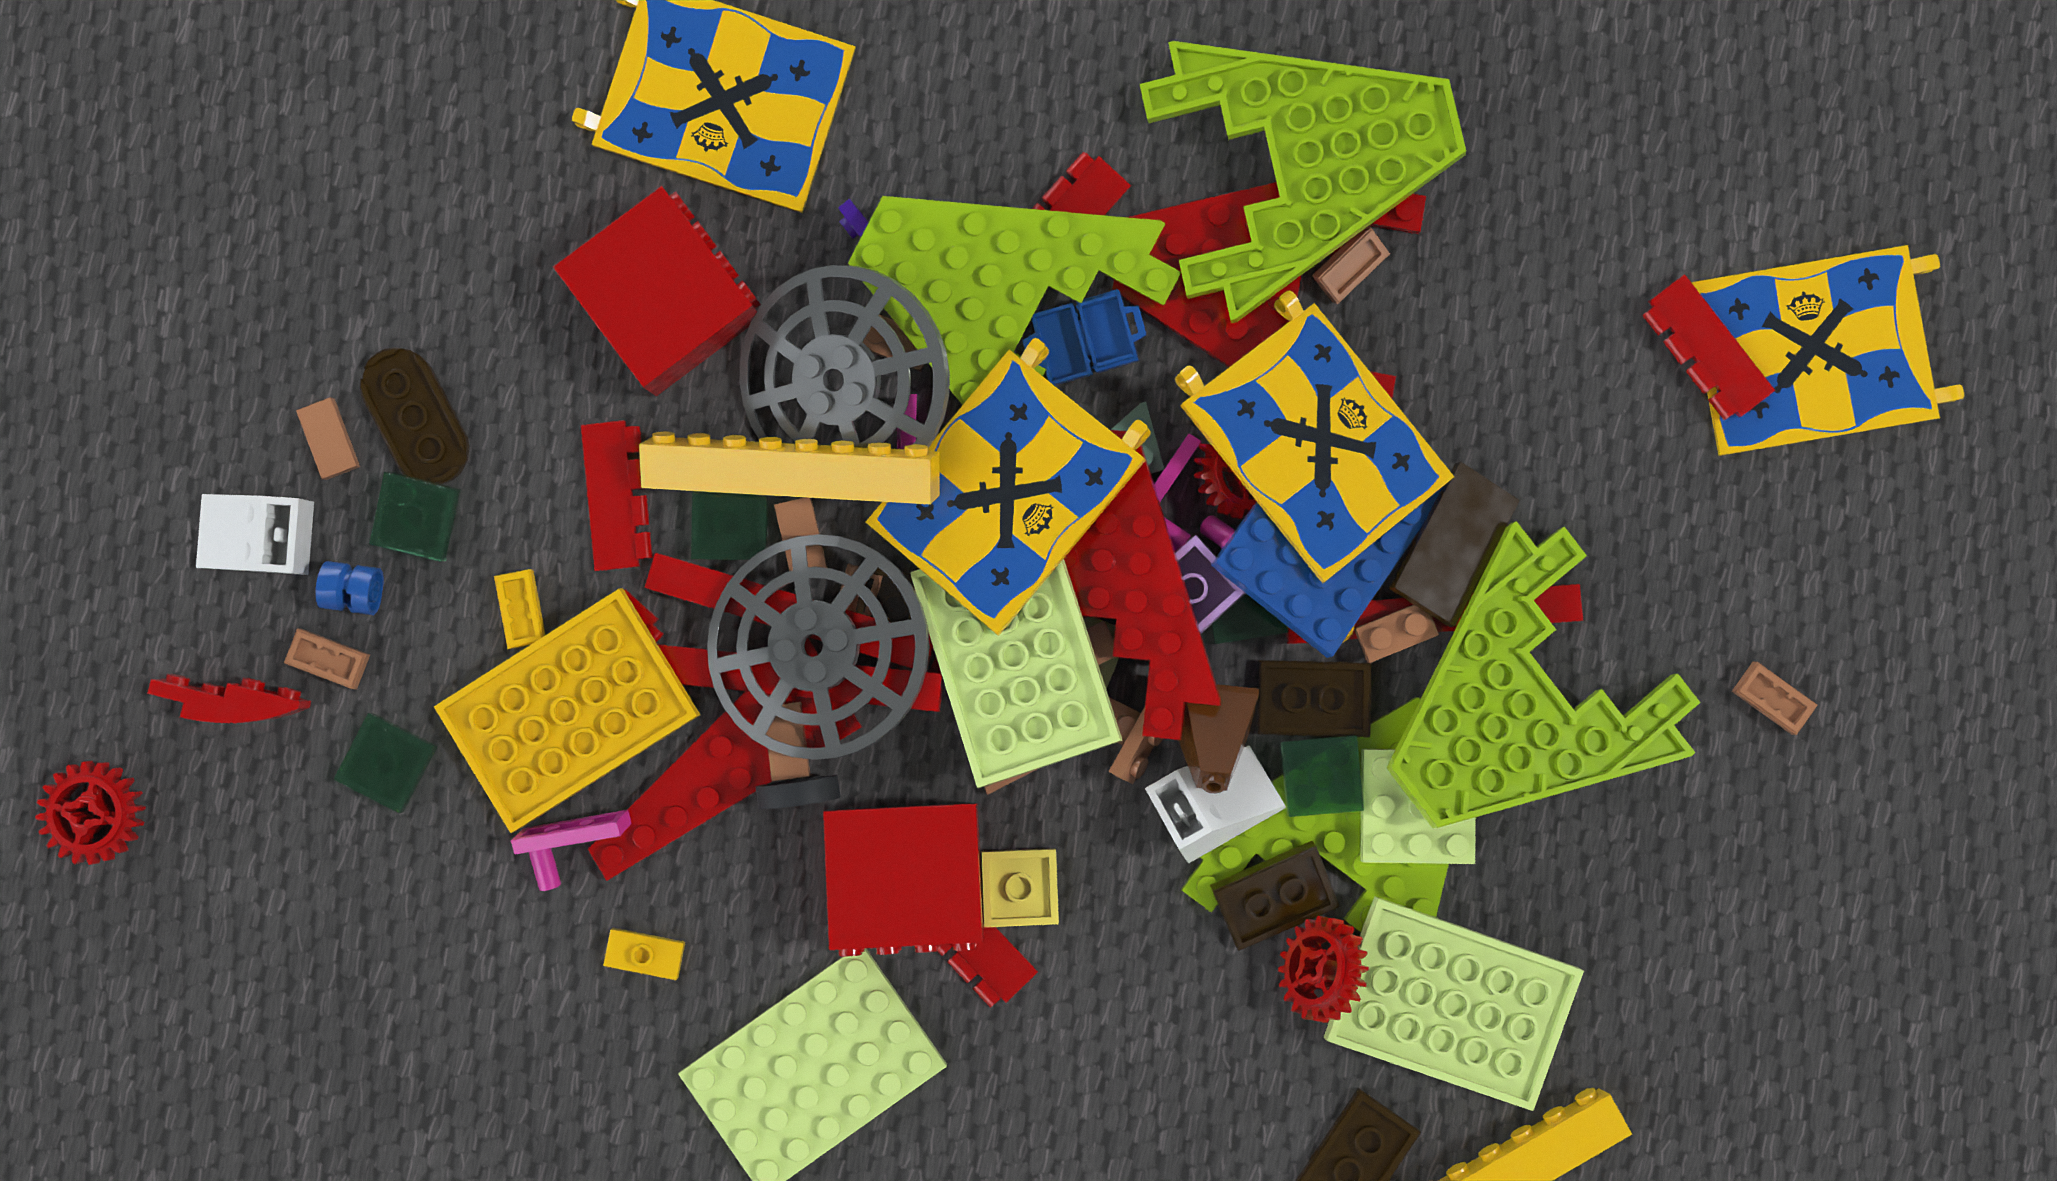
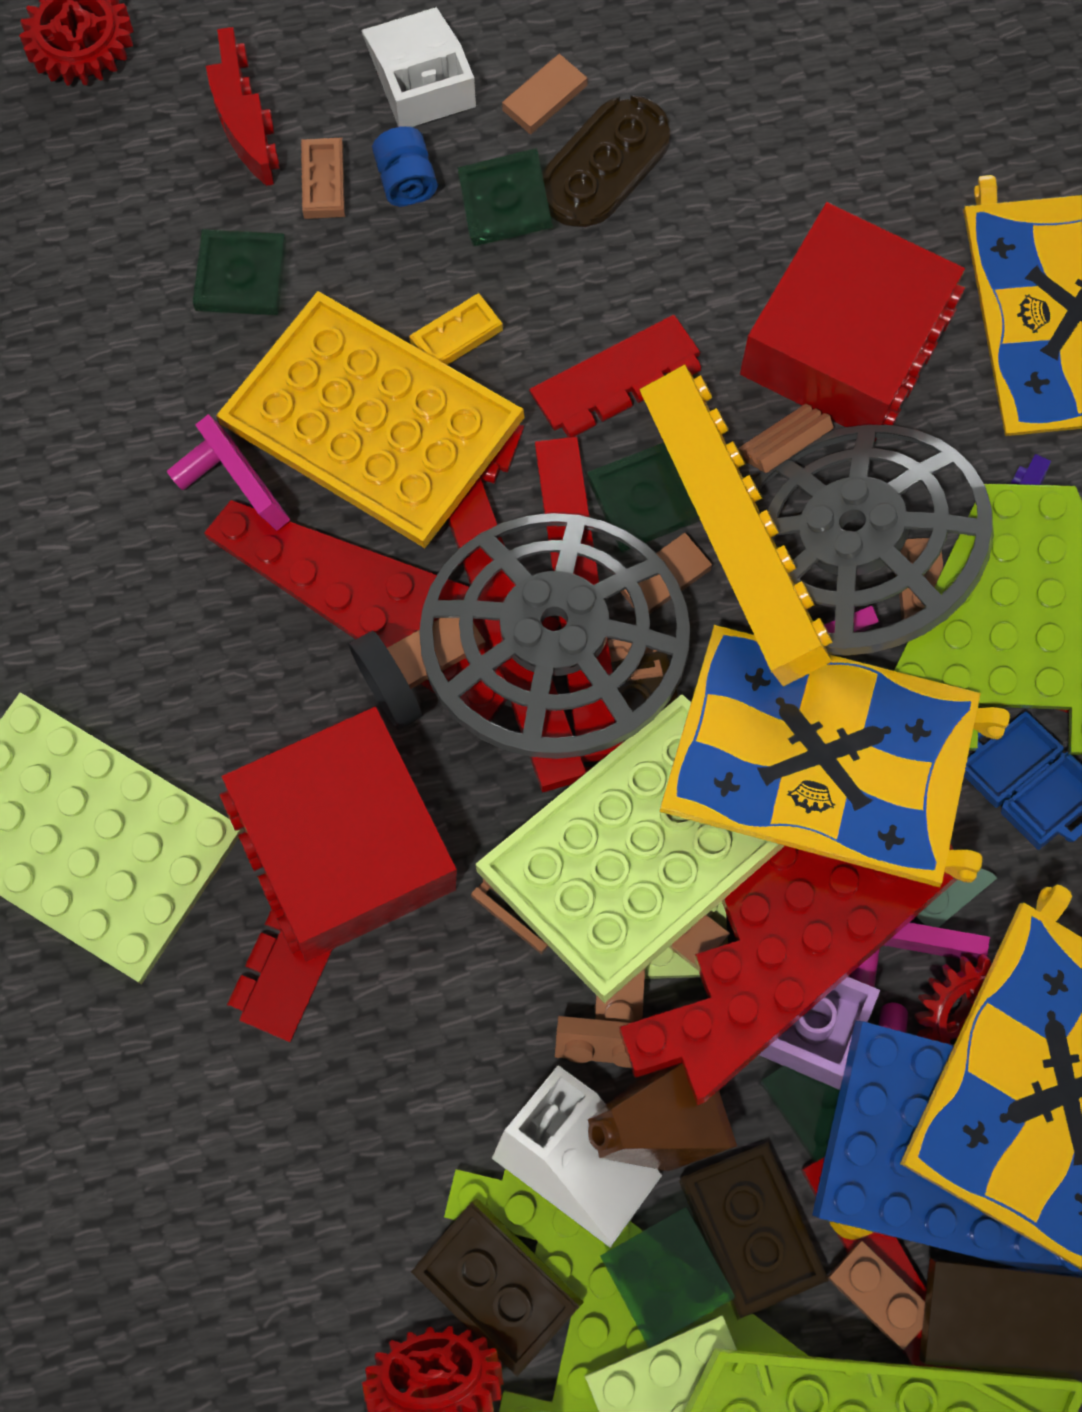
camera: 70 degrees right, 15 degrees down
(644, 953) = (139, 604): yellow plate -> none
(730, 388) = (786, 438): none -> nougat tile
(1019, 887) = (379, 976): light yellow plate -> none

